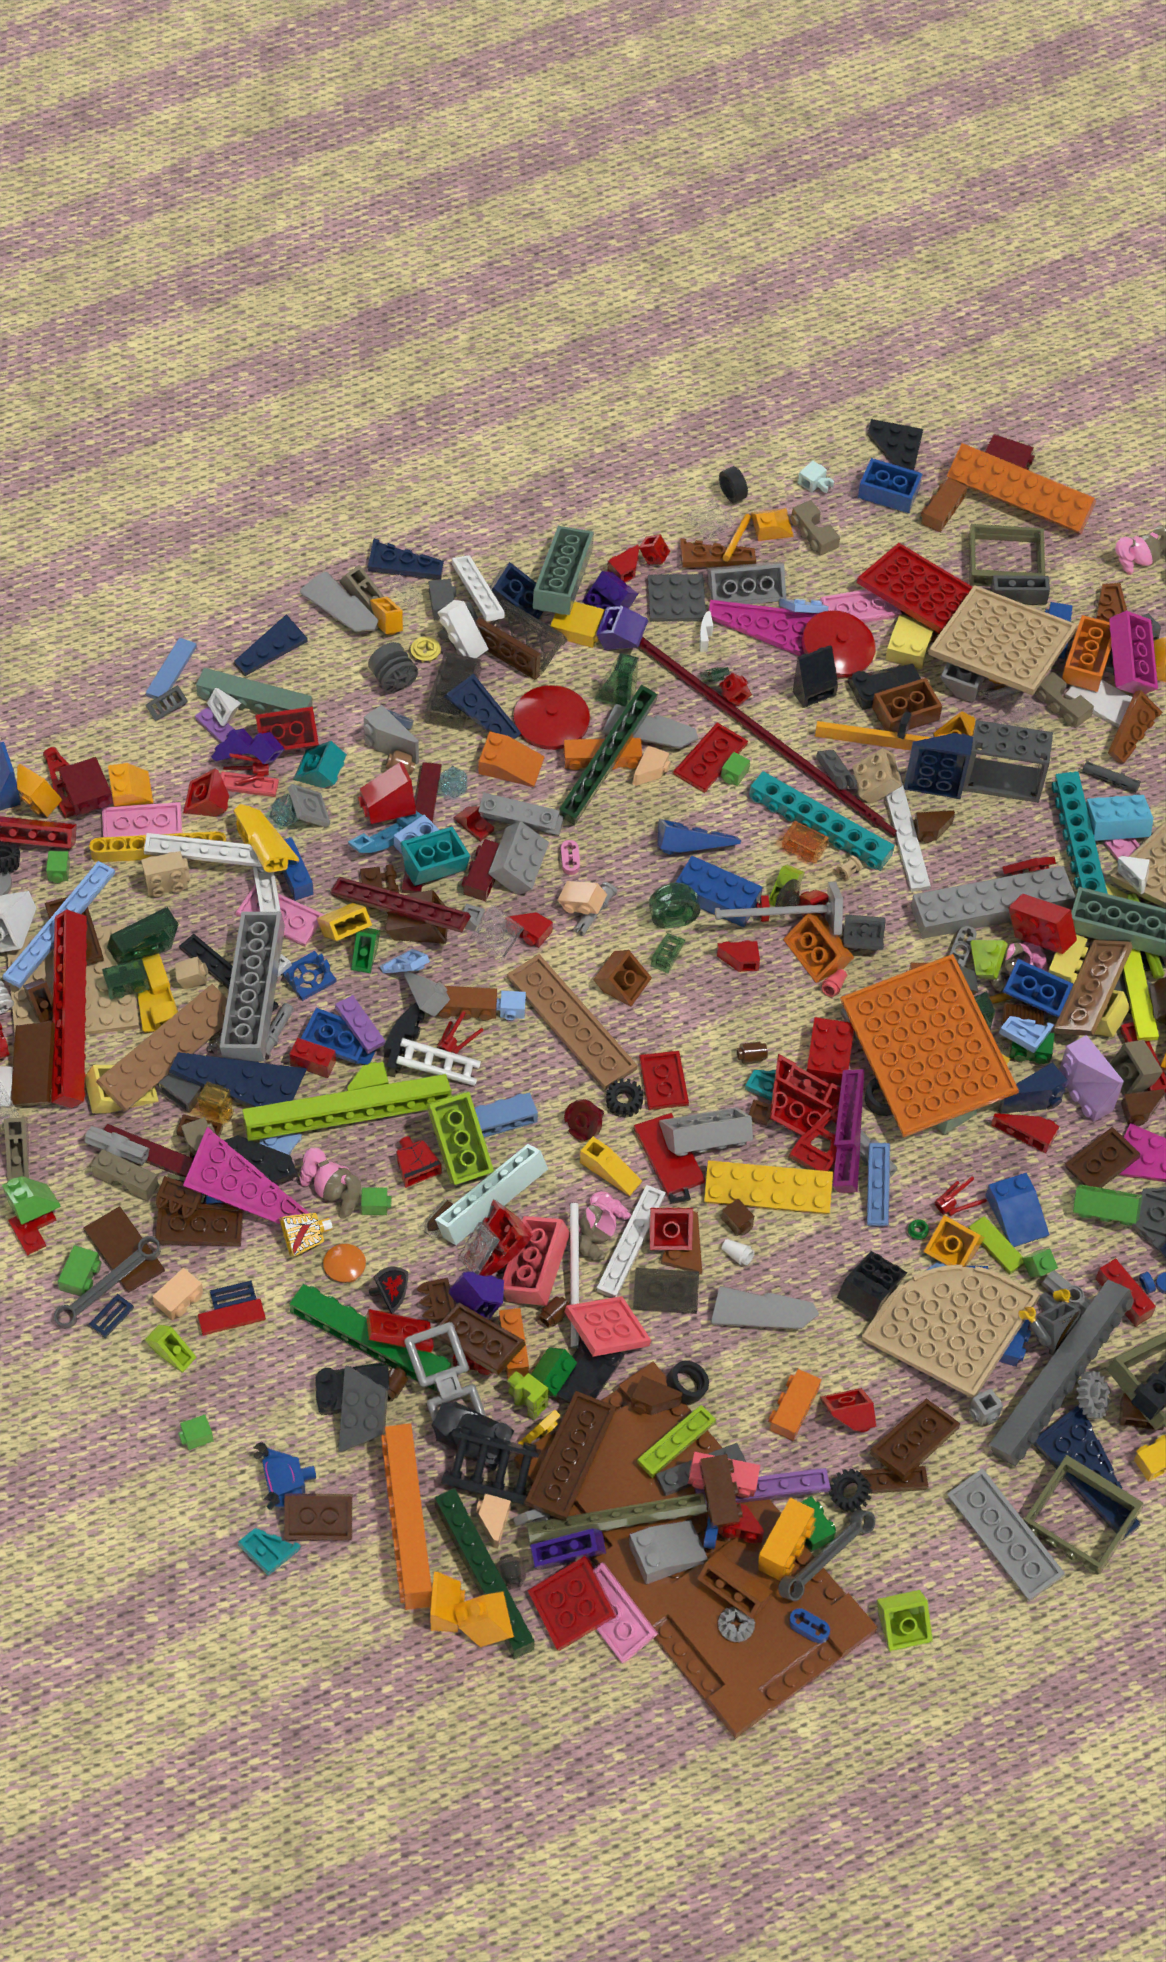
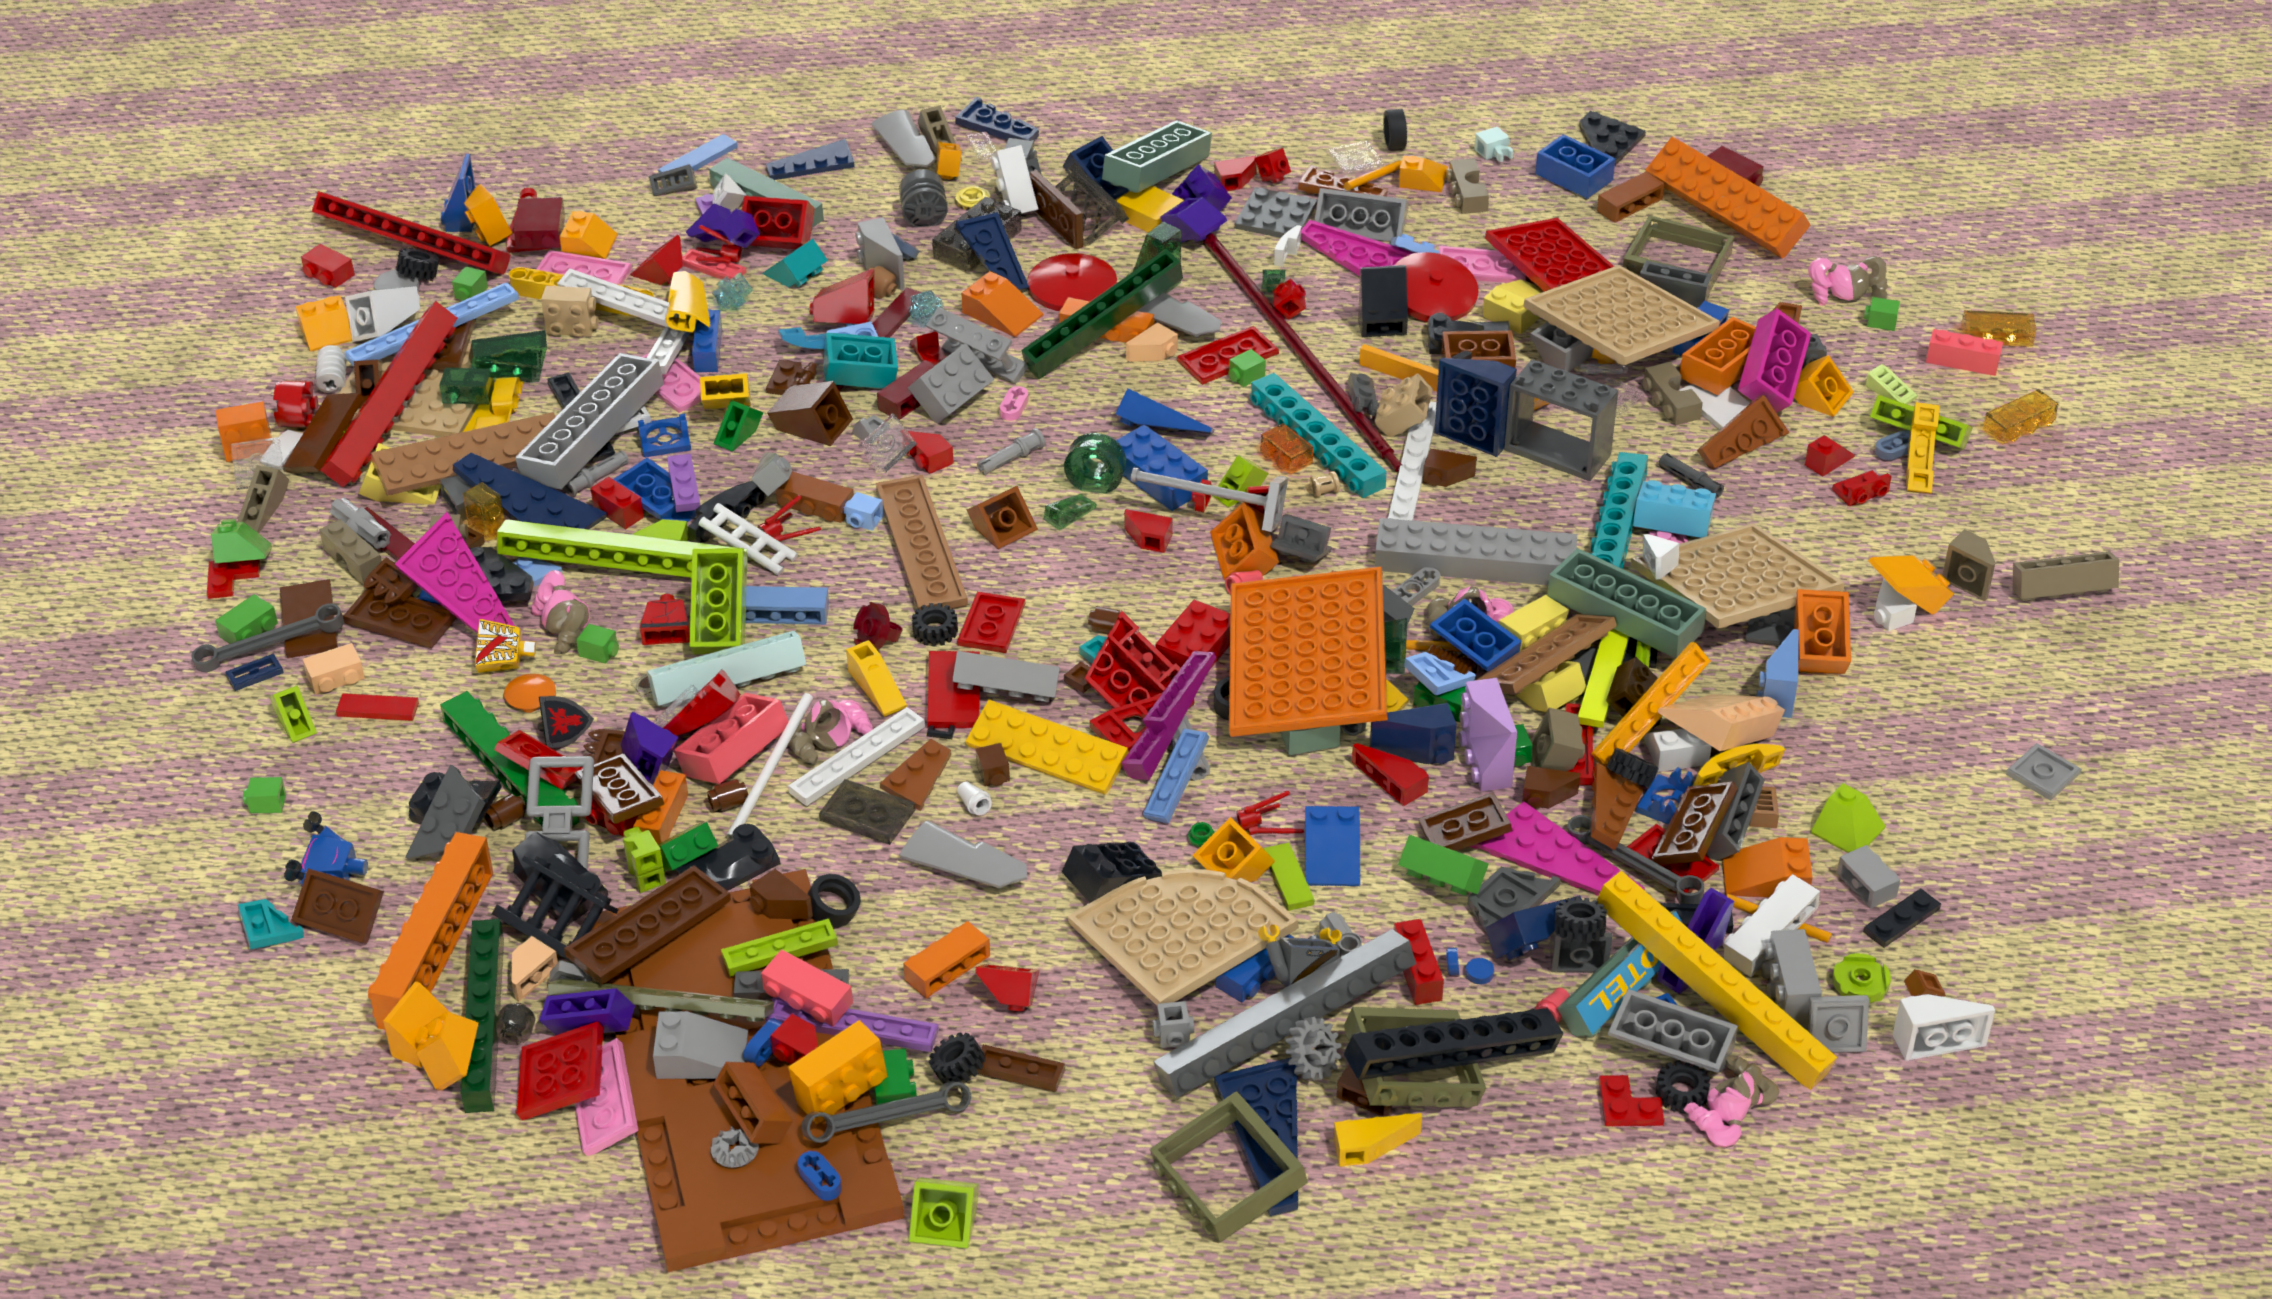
camera: 25 degrees right, 15 degrees down
(191, 973) = (540, 400): tan brick -> none
(219, 1291) = (393, 686): dark blue tile -> none
(309, 805) = (758, 292): light grey tile -> none
(400, 904) = (795, 389): dark red tile -> none
(408, 961) = (776, 445): light blue wing -> none
(478, 588) = (1055, 153): white plate -> none
(542, 1428) = (635, 888): yellow wing -> none
(582, 897) = (999, 433): light nougat brick -> none
(607, 1326) = (773, 819): coral plate -> none
(671, 1228) = (904, 747): red slope -> none
(720, 1491) = (783, 993): reddish brown brick -> none
(789, 894) = (1232, 478): clear smoke dish -> none
(915, 1439) = (1067, 1031): reddish brown plate -> none
(988, 957) = (1436, 596): lime wing -> none
(1006, 1534) = (1122, 1163): light grey plate -> none
(1032, 865) = (1540, 522): red plate -> none
(1040, 1262) = (1325, 900): bright green brick -> none
(1042, 923) = (1515, 574): red brick -> none

